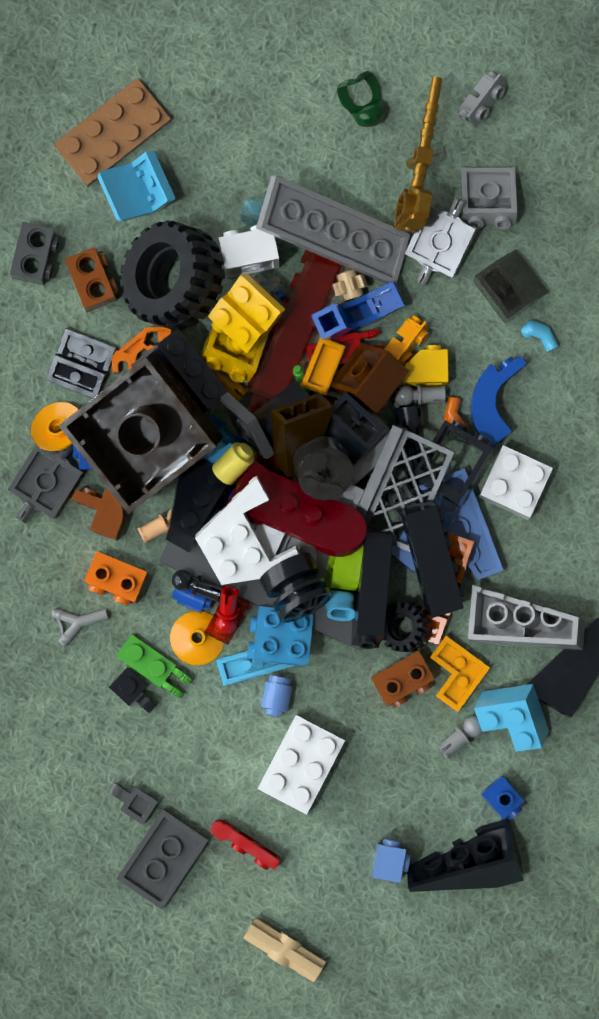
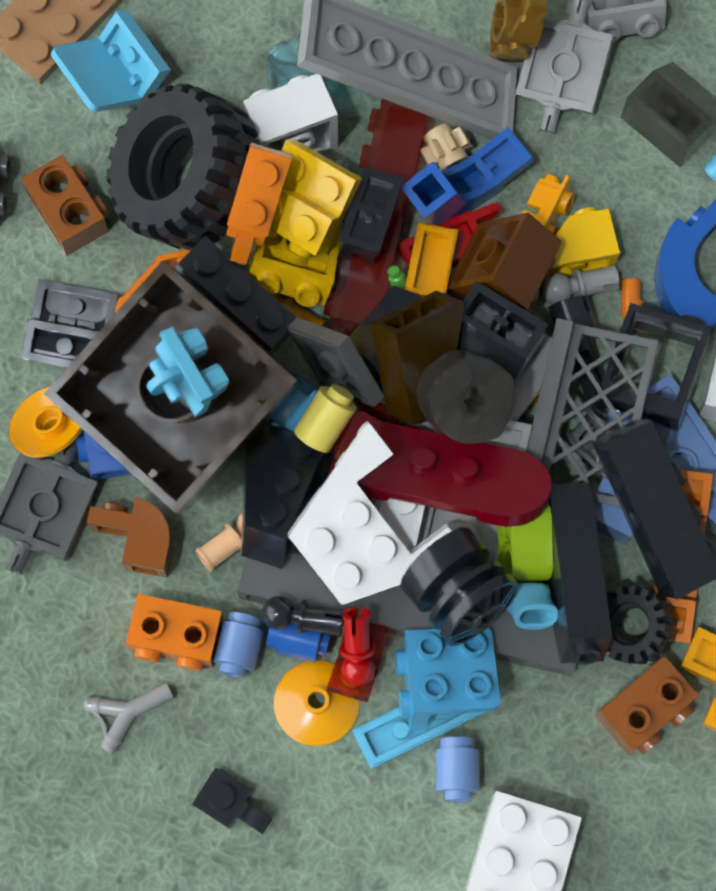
camera: 10 degrees left, 10 degrees down
(144, 419) = (178, 374): none -> medium azure hips
(151, 664) = (253, 756): bright green hinge -> none
(154, 593) = (238, 644): none -> medium blue brick
(214, 313) = (256, 199): none -> orange hinge
(287, 330) = (369, 215): none -> black hinge

